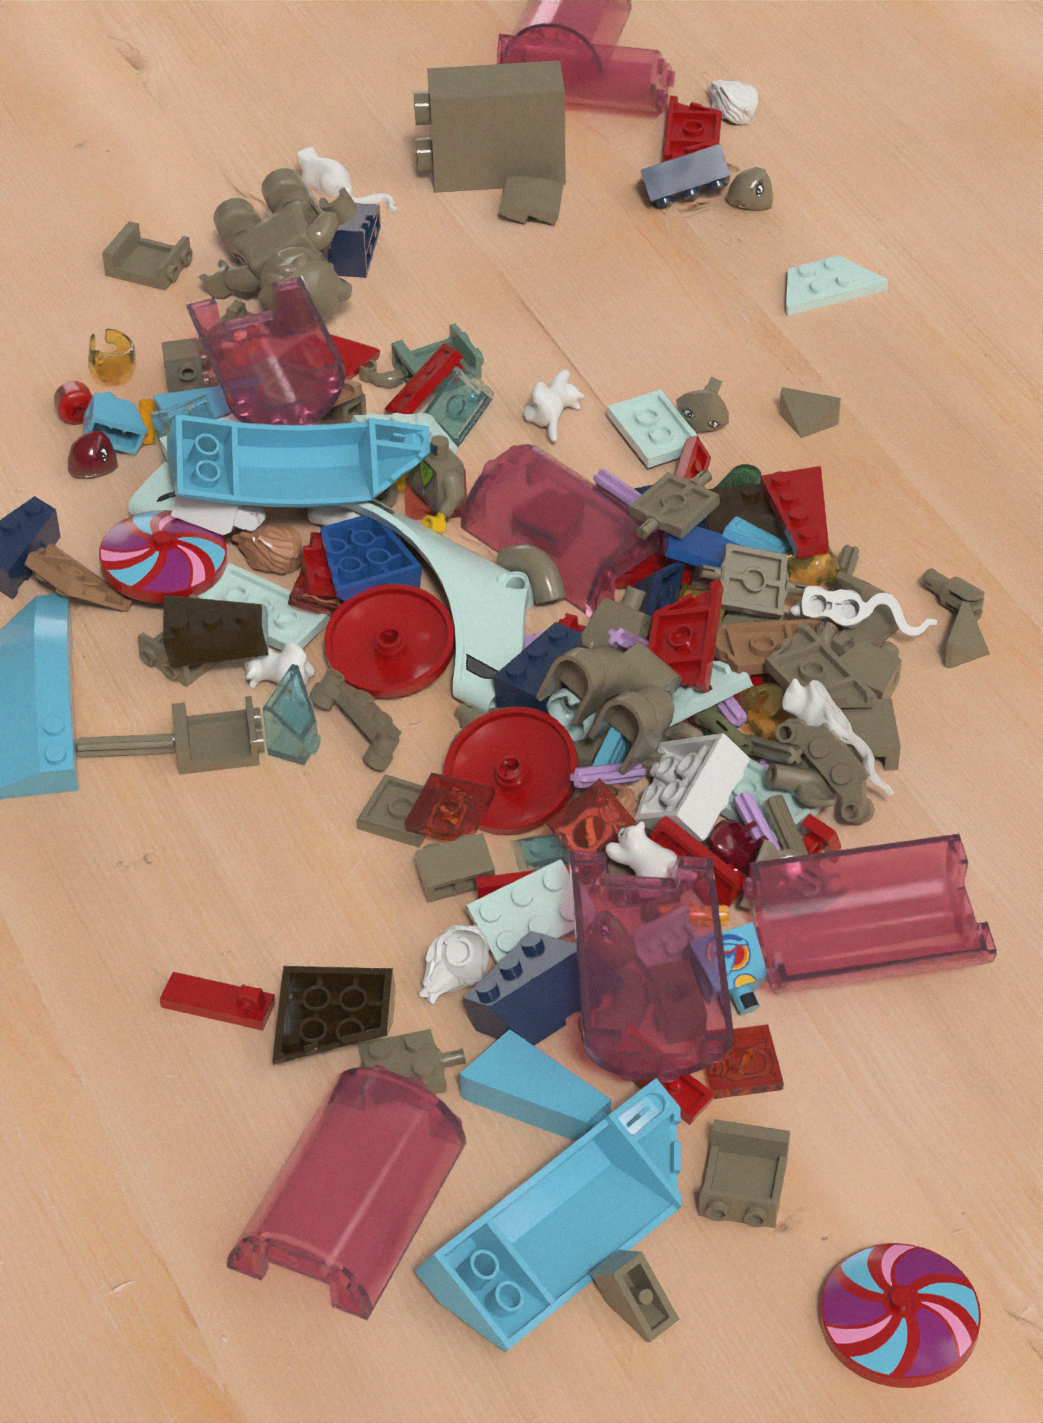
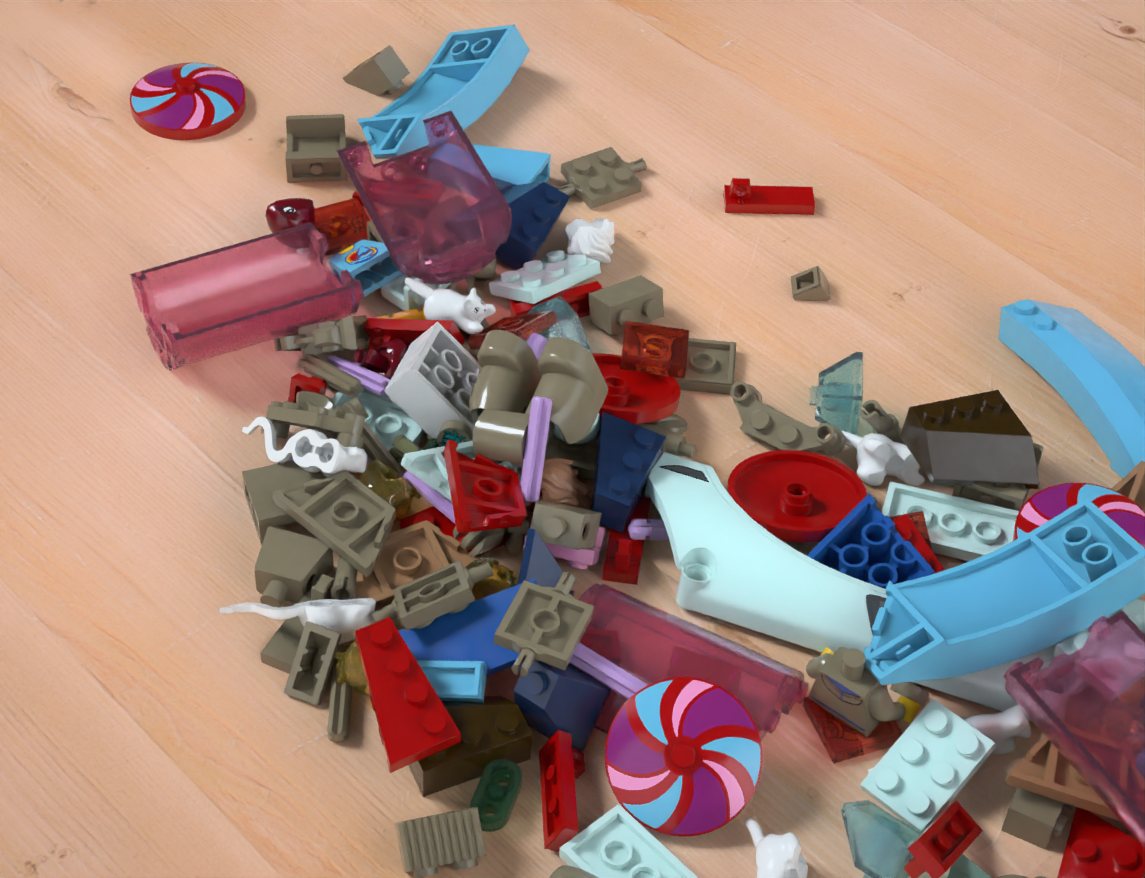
camera: 160 degrees right, 0 degrees up
(125, 745) = (983, 373): dark tan axle -> none
(217, 739) = (911, 384): dark tan panel -> none
(238, 879) = (810, 285): none -> dark tan slope
(269, 679) = (881, 421): none -> dark tan pin
(331, 1009) = (669, 185): dark brown wedge -> none
(354, 1187) = (602, 84): clear pink cylinder -> none
(538, 567) = (689, 605): dark tan cylinder -> none
(592, 450) = (683, 756): none -> dish
(788, 456) = (440, 840): none -> dark tan brick
(795, 1046) = (289, 213): none -> dark red piece
(954, 591) = (204, 689): dark tan arm -> none
(965, 639) = (188, 636): dark tan slope -> none

